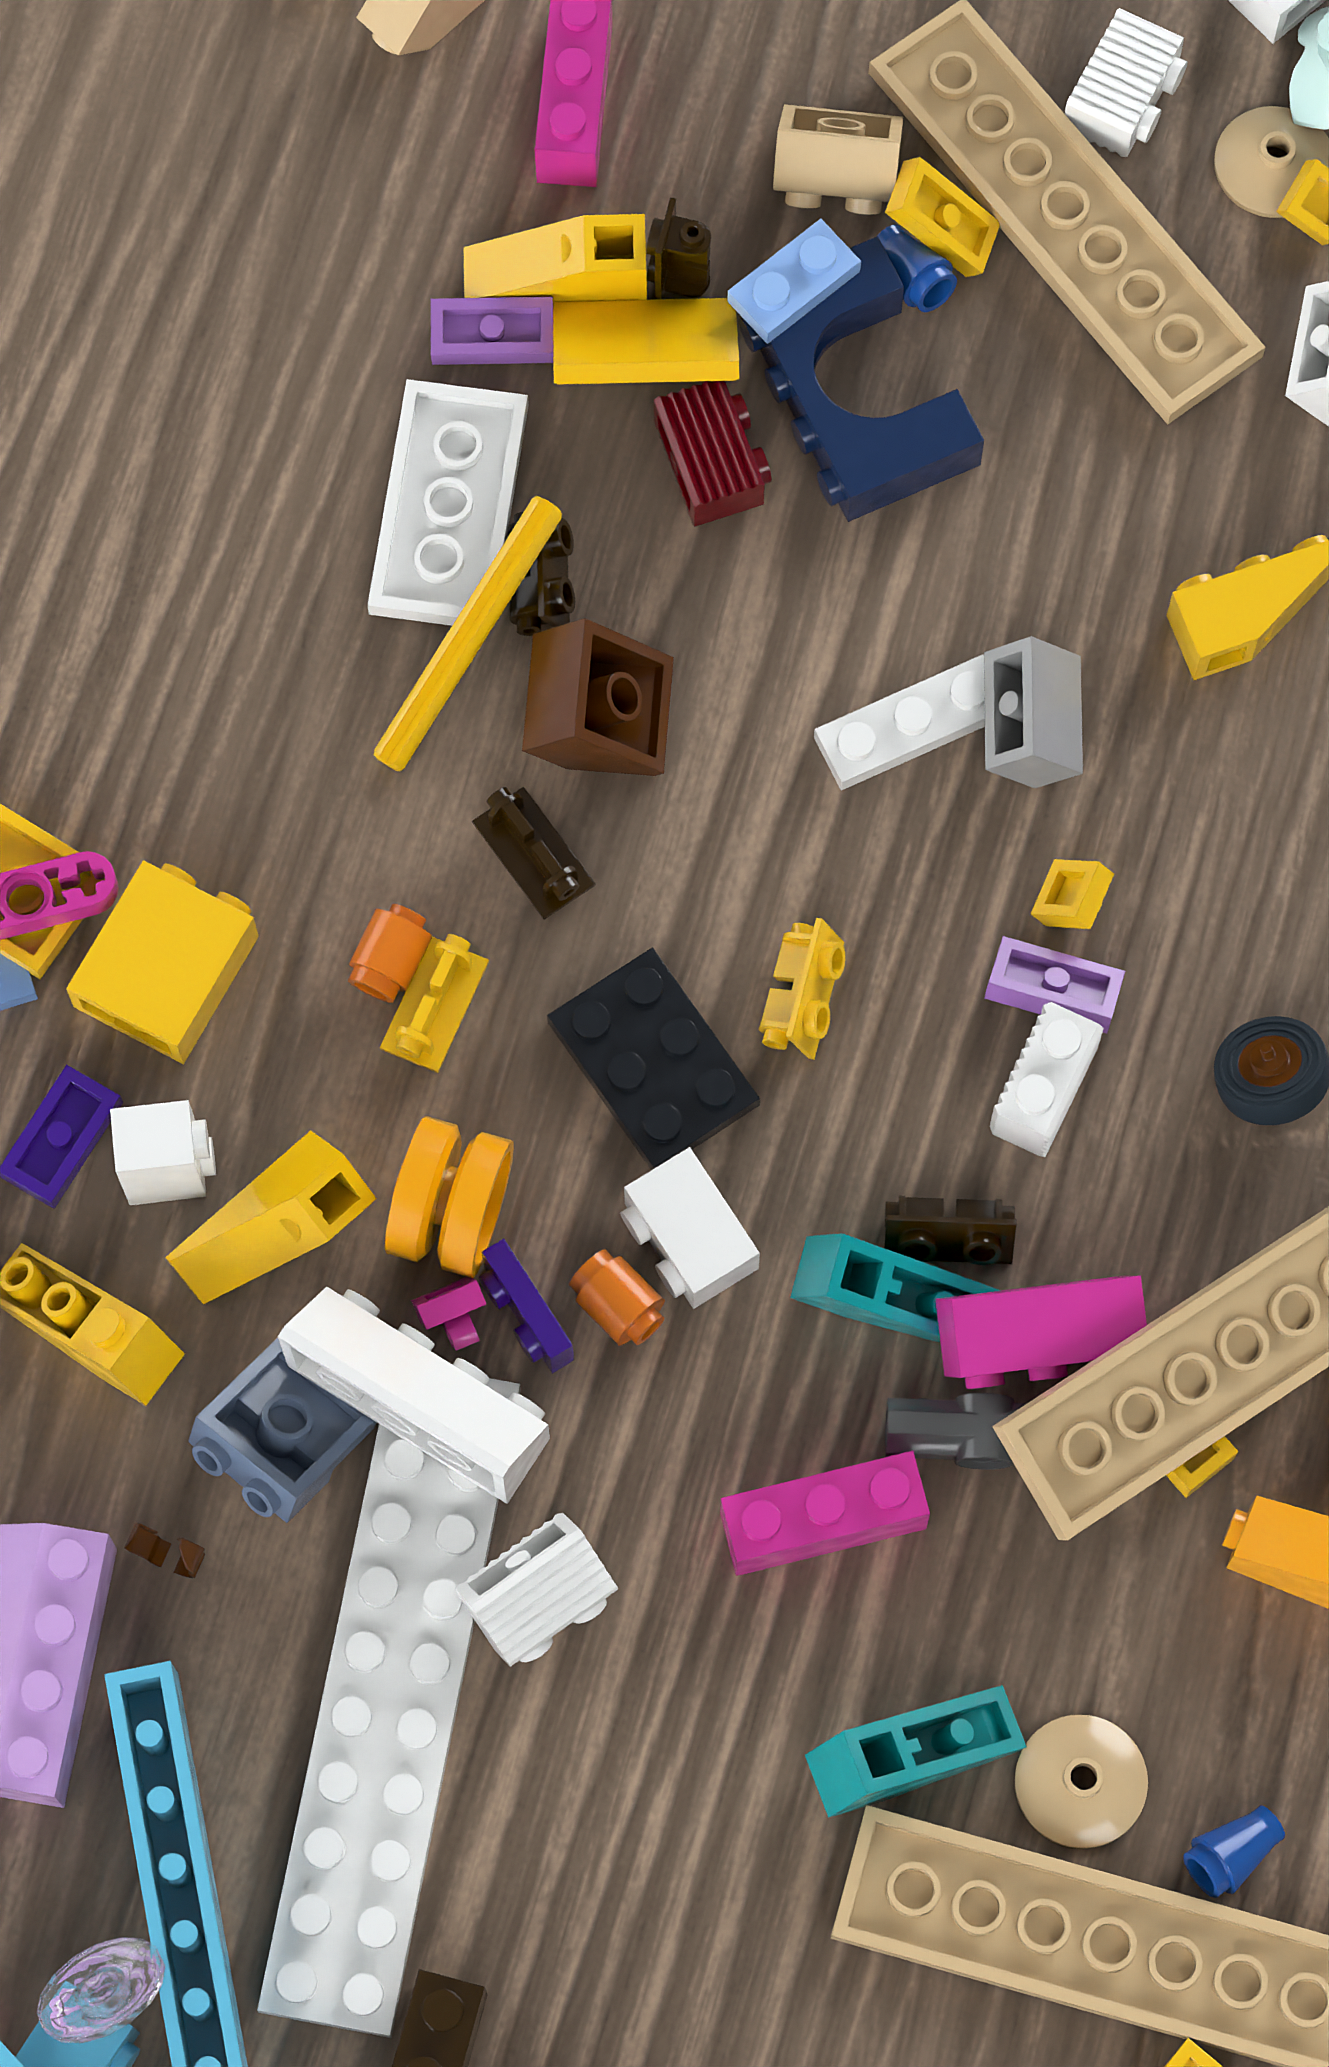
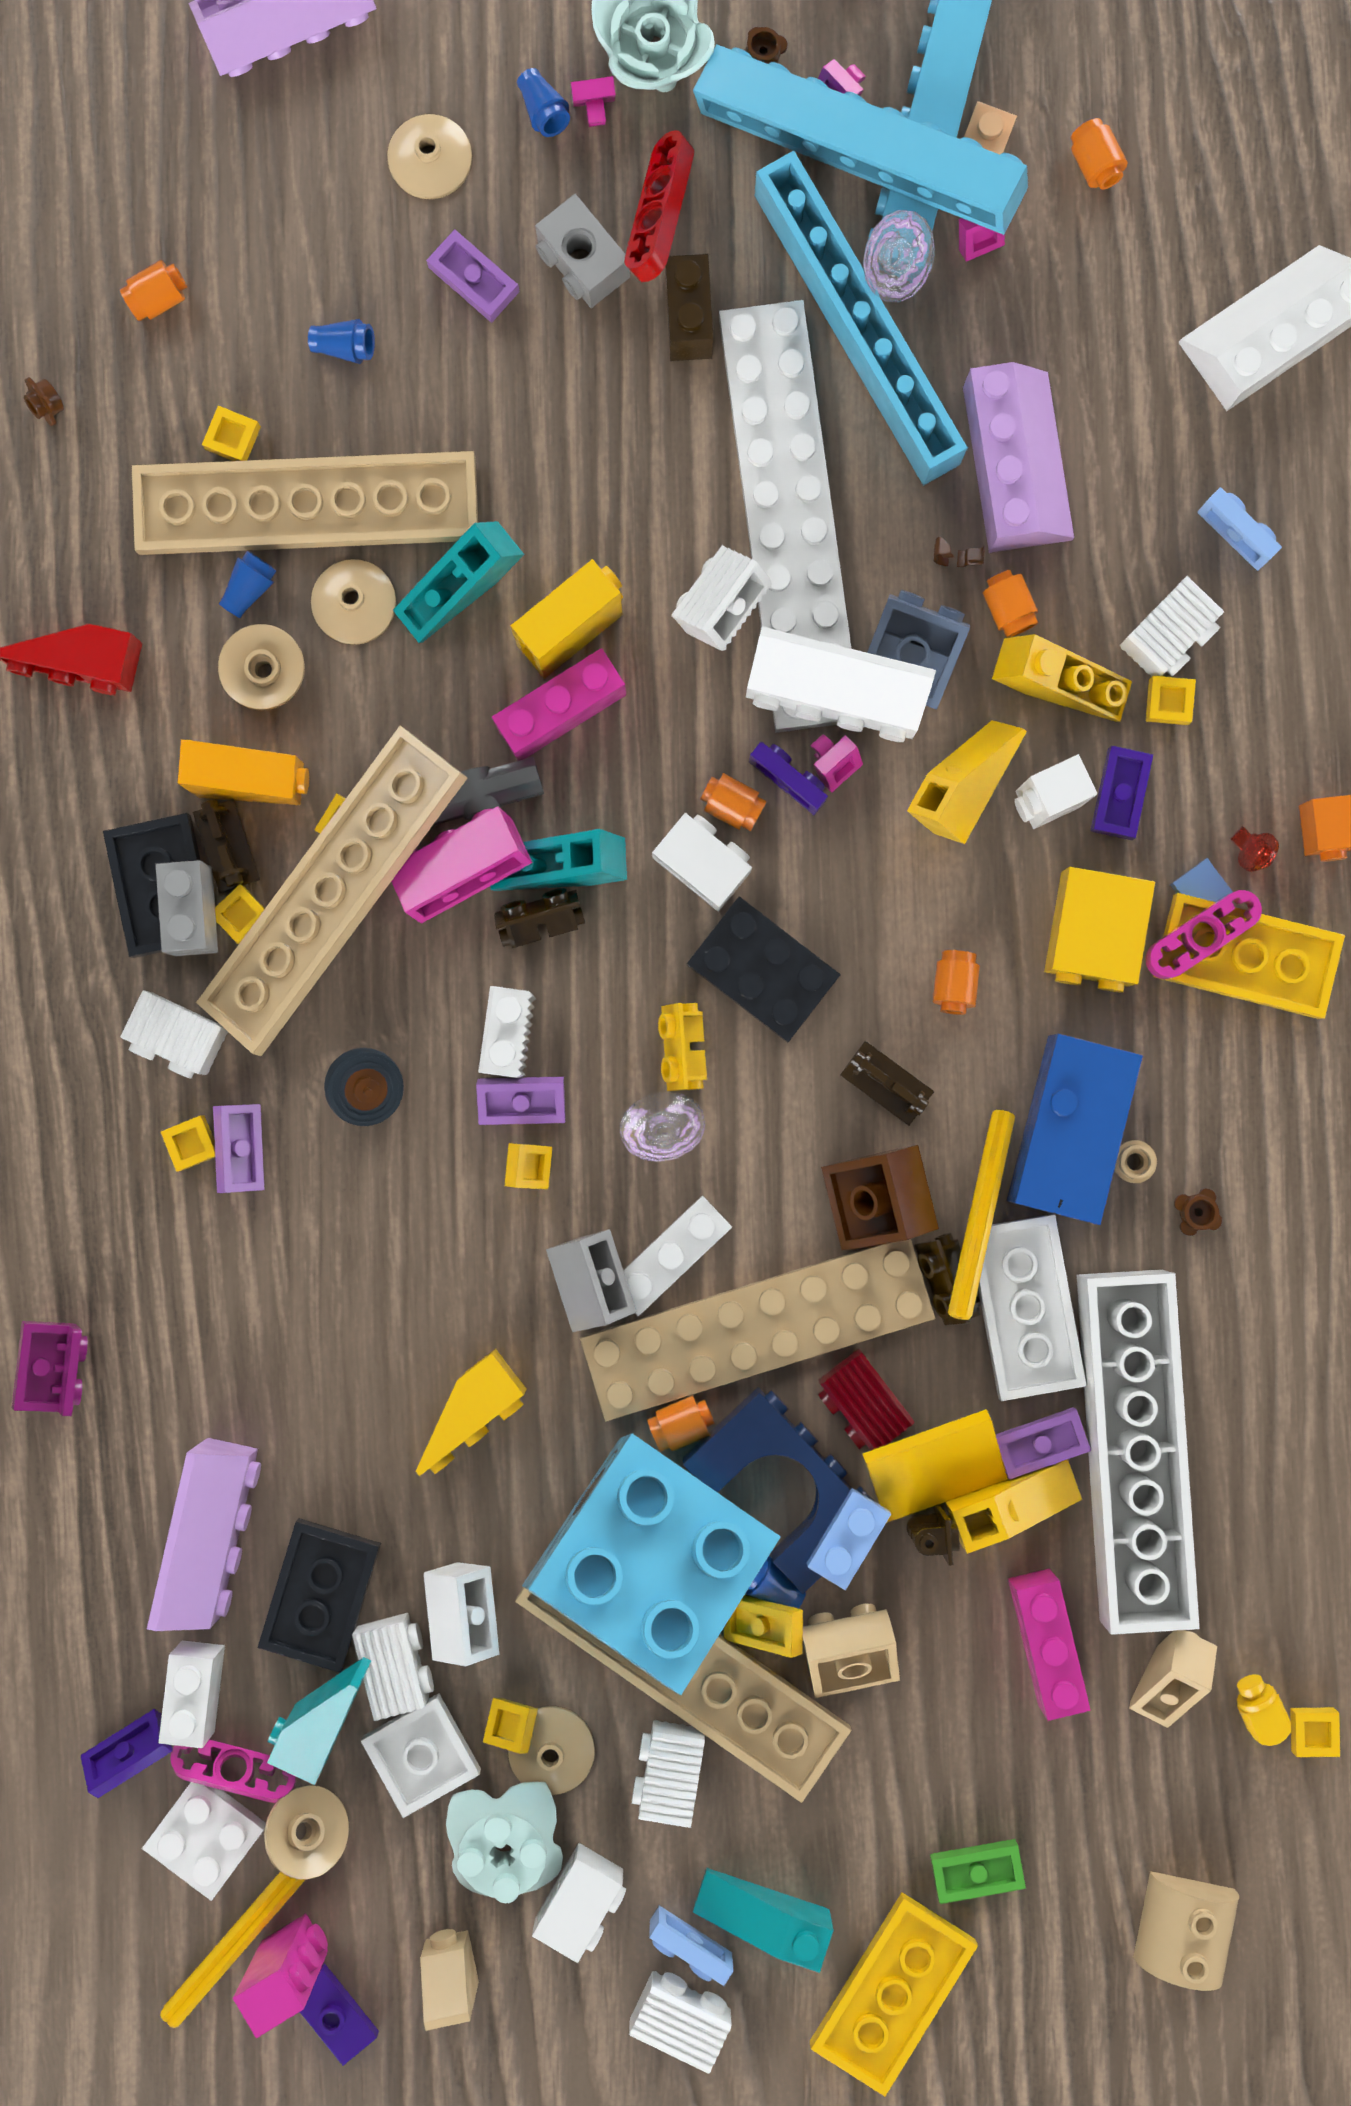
camera: 160 degrees right, 15 degrees up
(117, 1451) = (1010, 603): none -> orange brick
(167, 537) = (1209, 1217): none -> reddish brown plate
(231, 628) = (1147, 1165): none -> tan plate
(300, 706) = (1074, 1128): none -> blue brick
(369, 282) = (1137, 1451): none -> white brick
(435, 1003) = (915, 959): yellow hinge -> none
(439, 1194) = (865, 823): light orange wheel -> none
(770, 1624) = (569, 617): none -> yellow brick
(825, 590) = (757, 1328): none -> tan plate
(863, 912) = (662, 1126): none -> clear dish
(969, 499) = (681, 1424): none -> orange brick
(1070, 324) = (652, 1562): none -> medium azure brick
(1266, 1687) = (247, 652): none -> tan dish

